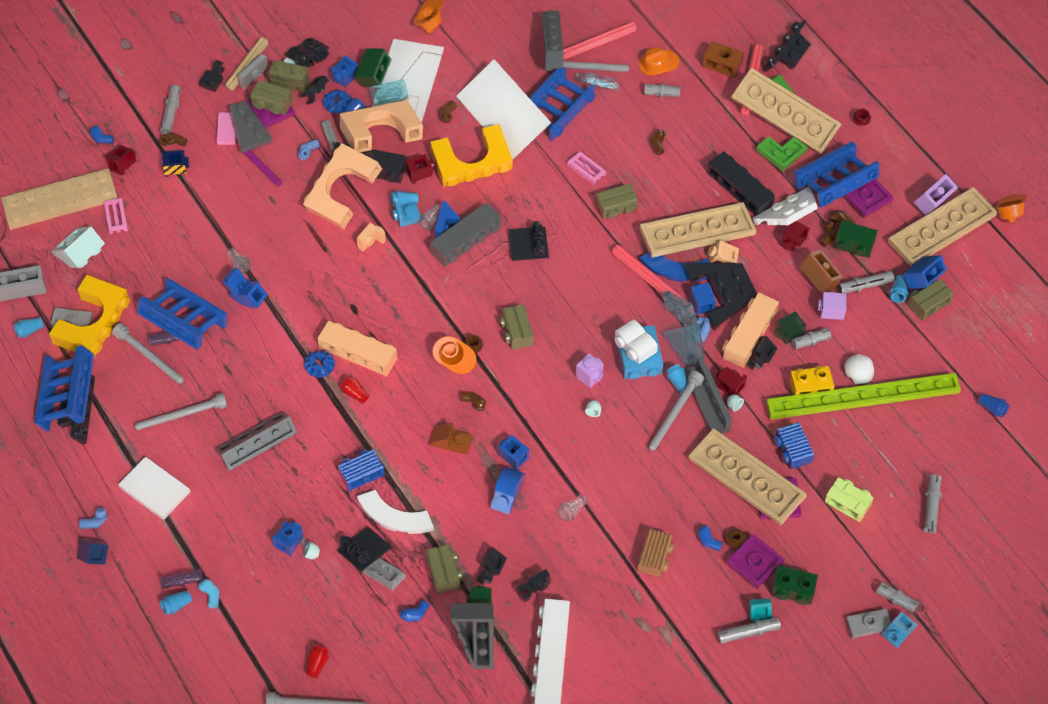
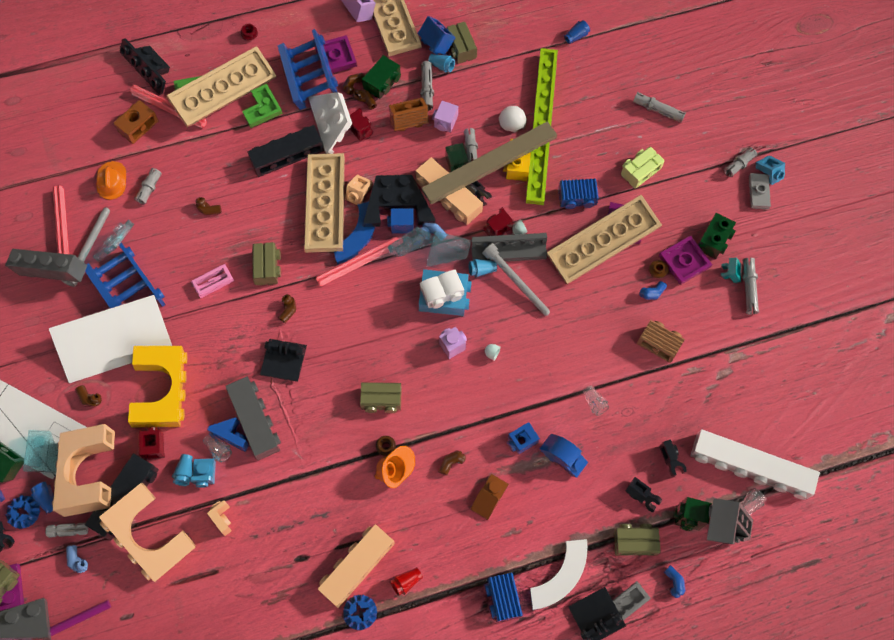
camera: 75 degrees left, 10 degrees up
(512, 667) = (753, 501): none -> clear cone
(580, 234) = (289, 308): none -> reddish brown arm
(791, 351) = (489, 162): none -> dark tan tile

